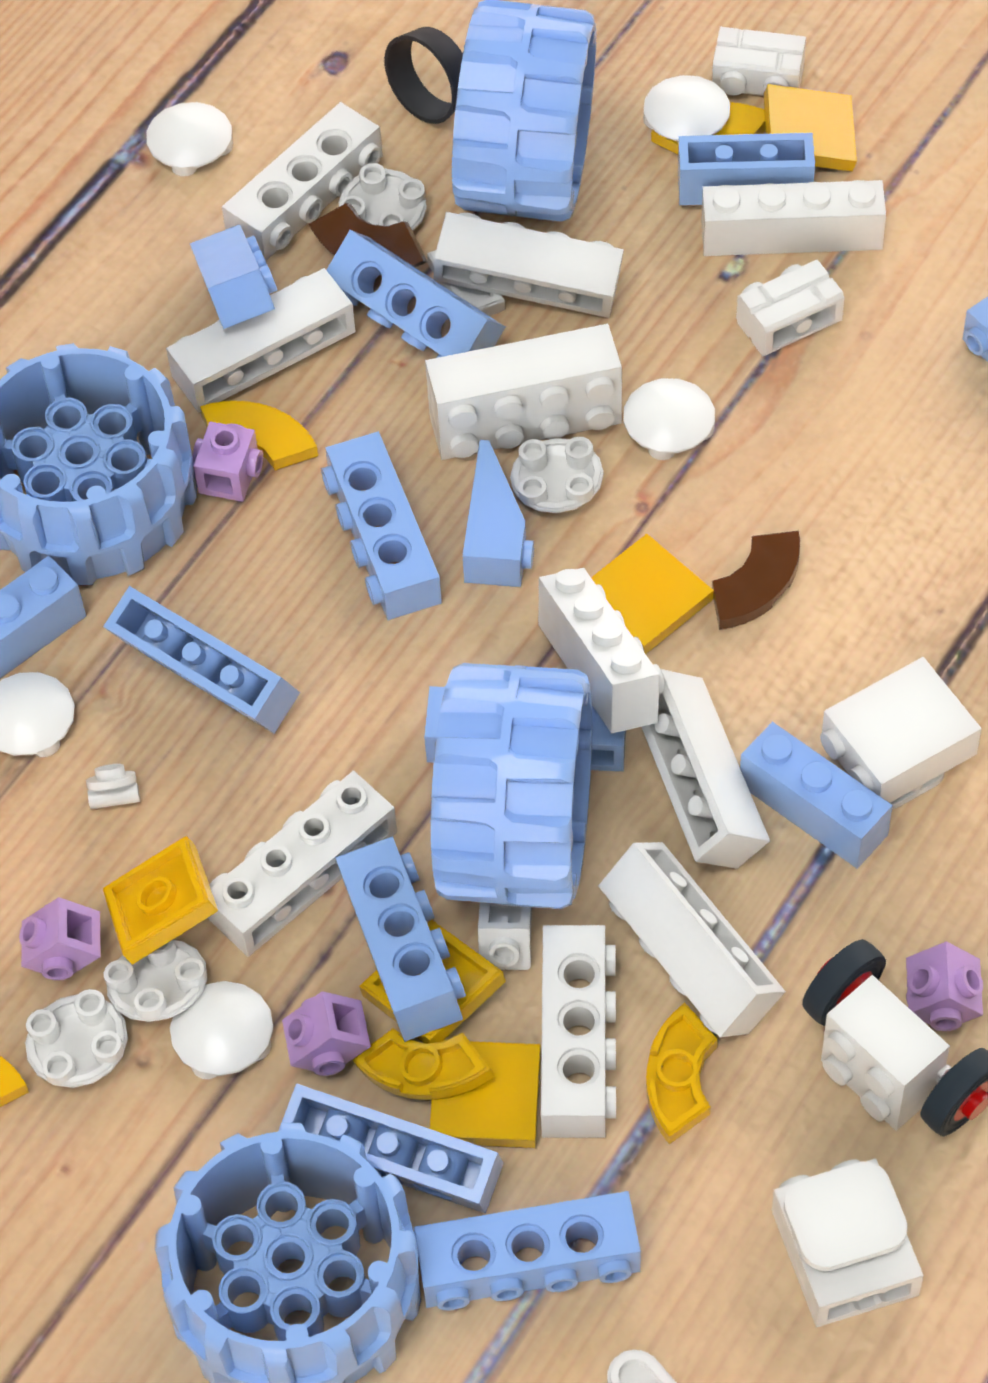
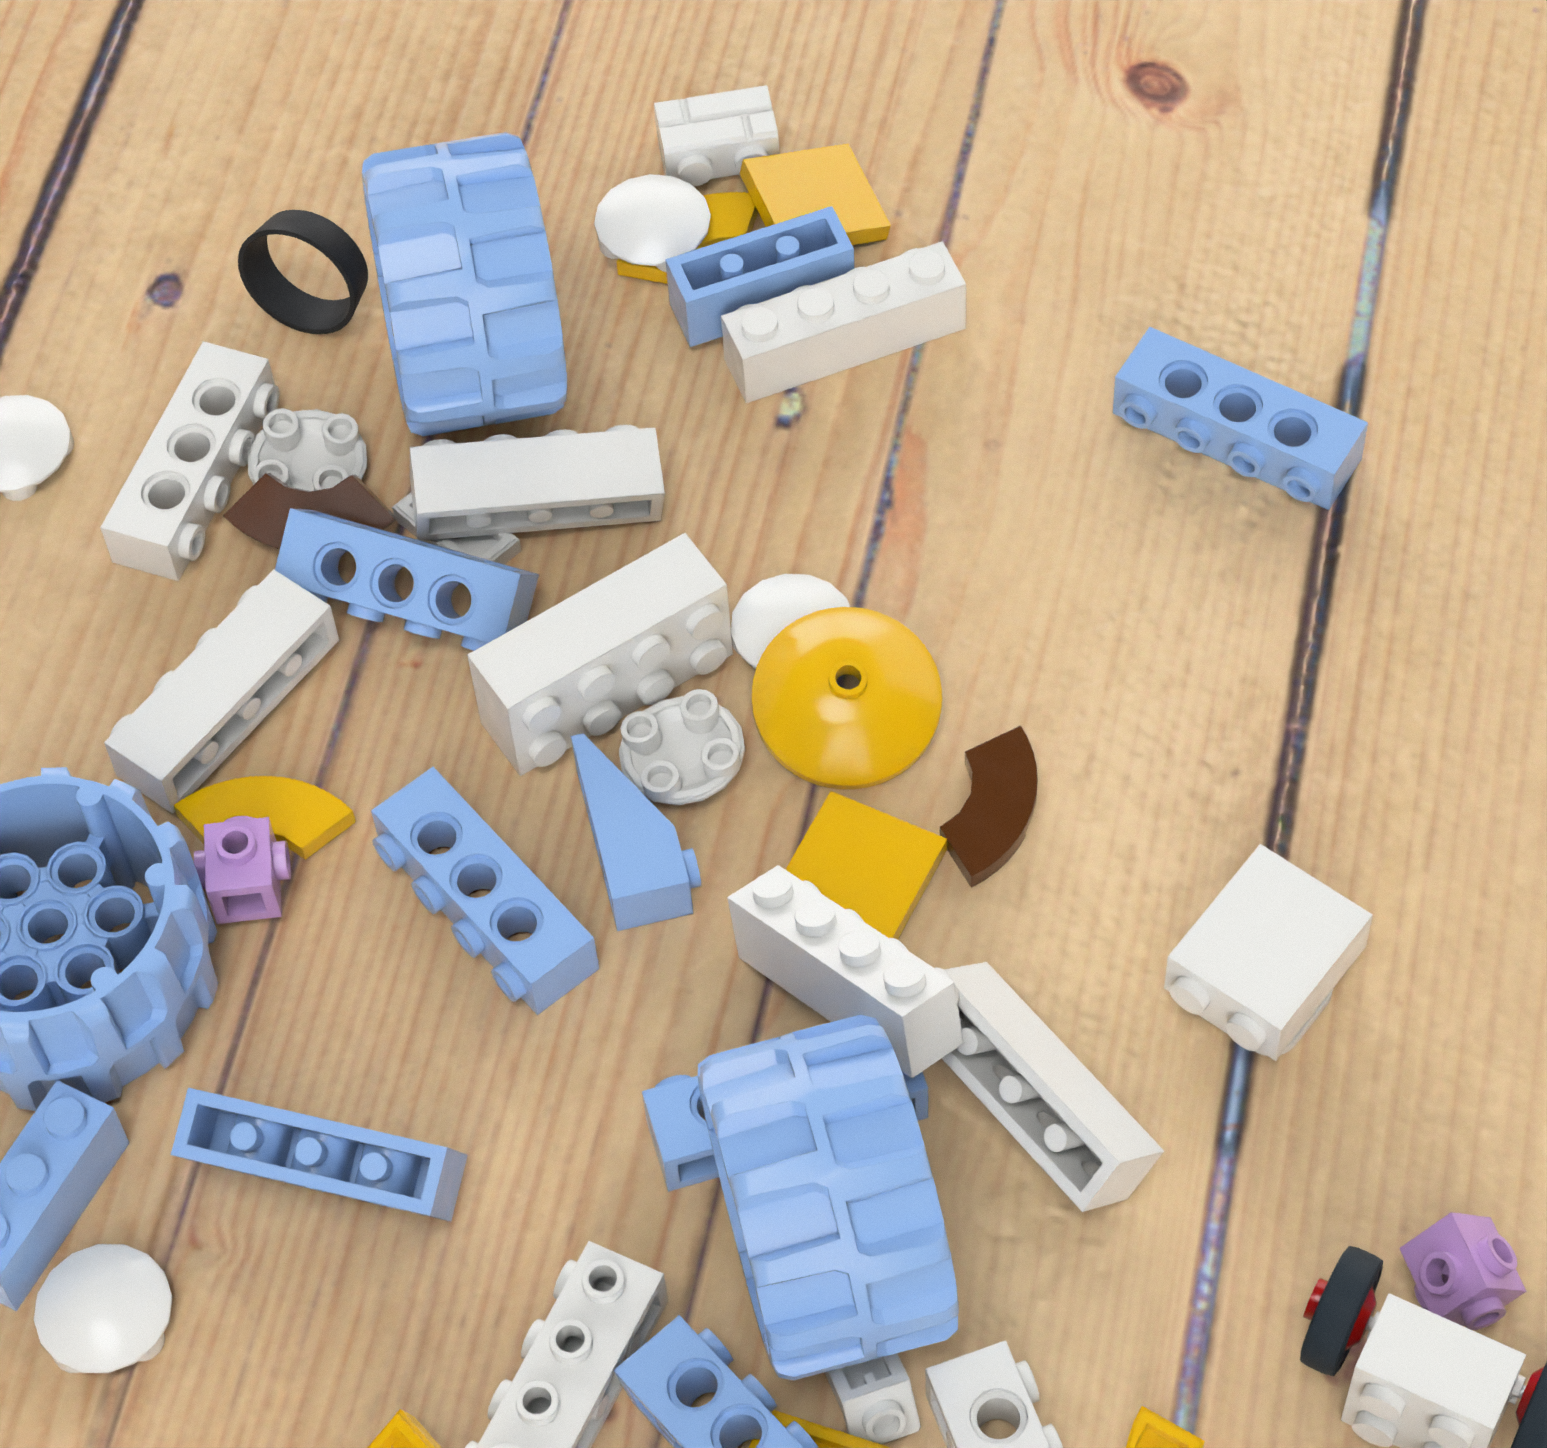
camera: 20 degrees left, 0 degrees up
(112, 787) = (263, 1370): white plate -> none
(235, 275) = (158, 616): light blue brick -> none
(689, 499) = (839, 733): none -> yellow dish
(690, 939) = (1119, 1320): white brick -> none
(789, 307) = (887, 437): white brick -> none
(815, 795) = (1193, 1068): light blue brick -> none

